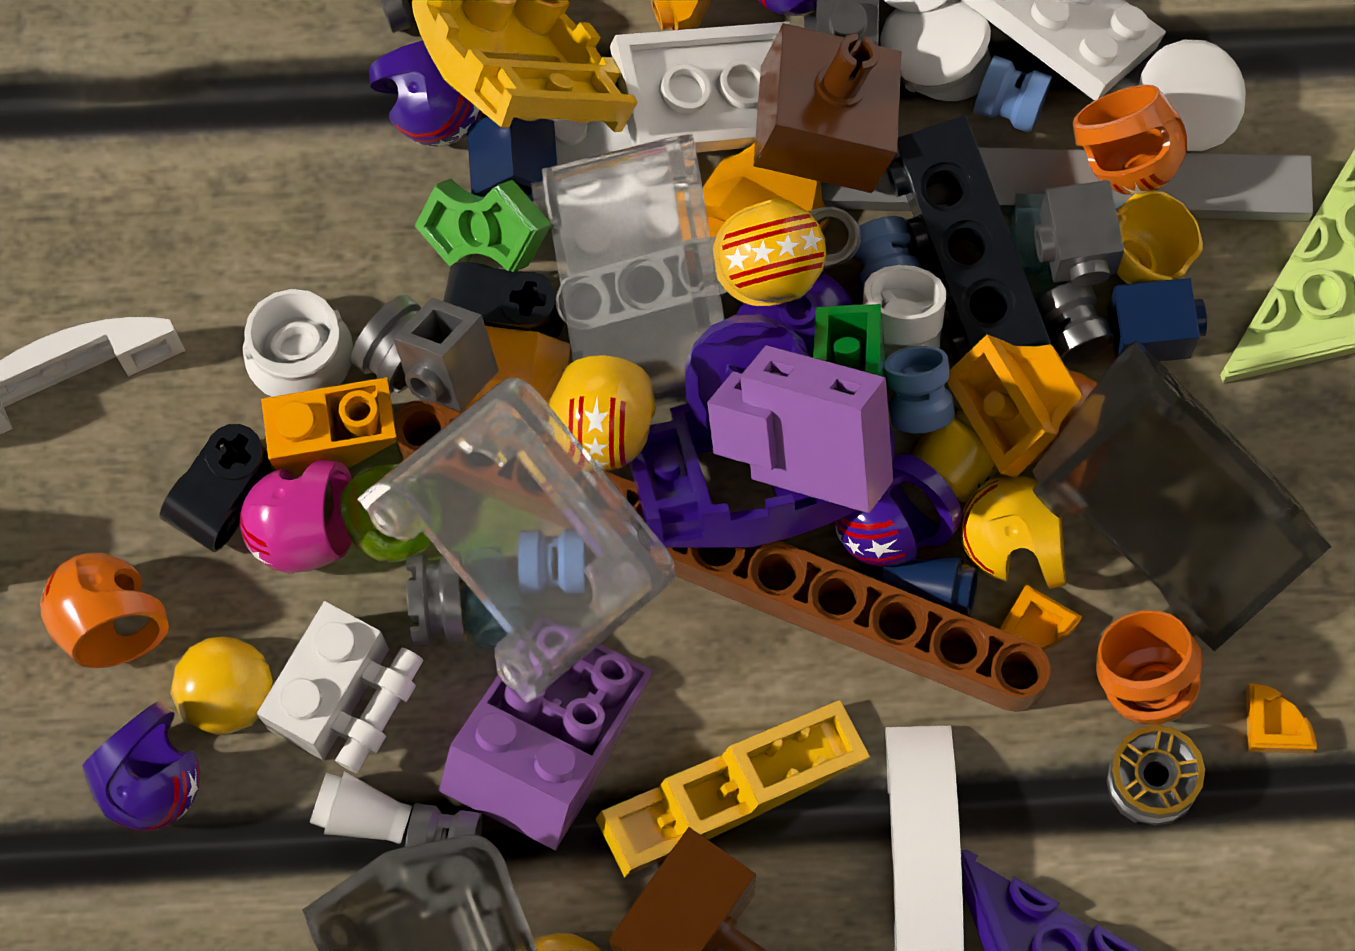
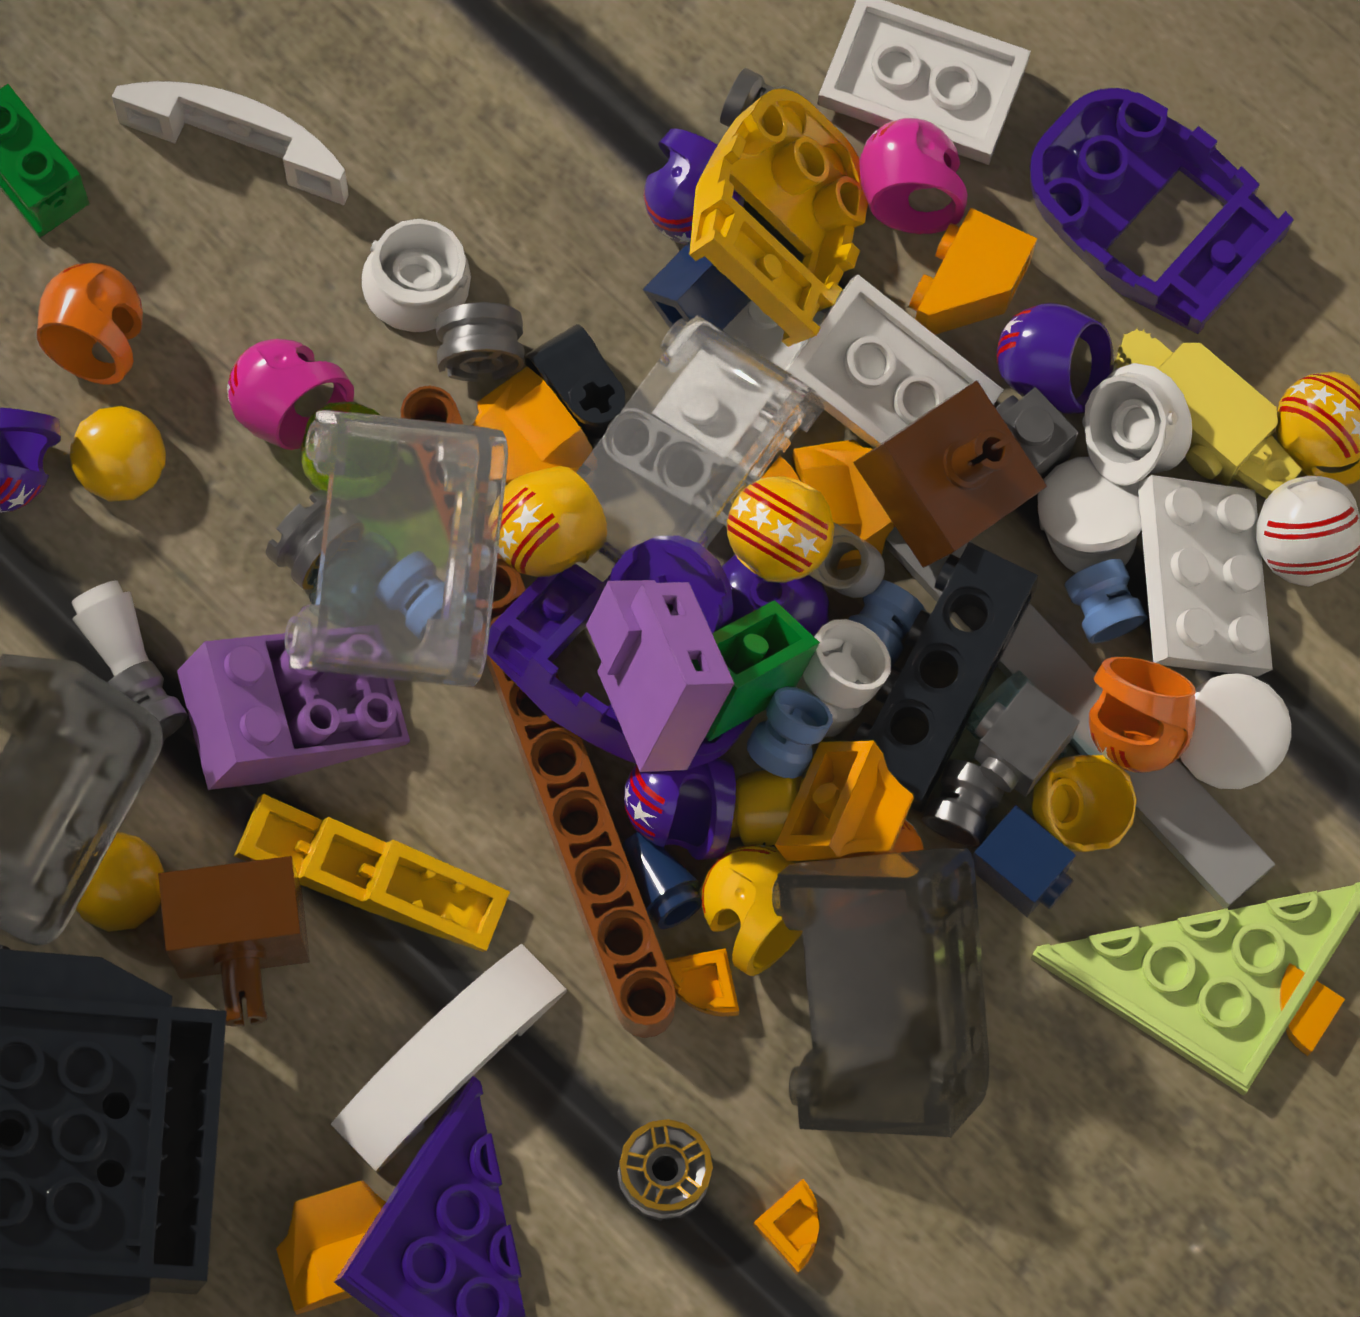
camera: 40 degrees right, 0 degrees up
(211, 493) = (255, 312): black piece -> none
(327, 679) = (182, 522): white brick -> none
(329, 424) = (370, 347): light orange slope -> none
(446, 354) = (492, 377): flat silver brick -> none
(498, 225) = (623, 316): bright green tile -> none
(1149, 667) = (736, 1089): orange helmet -> none

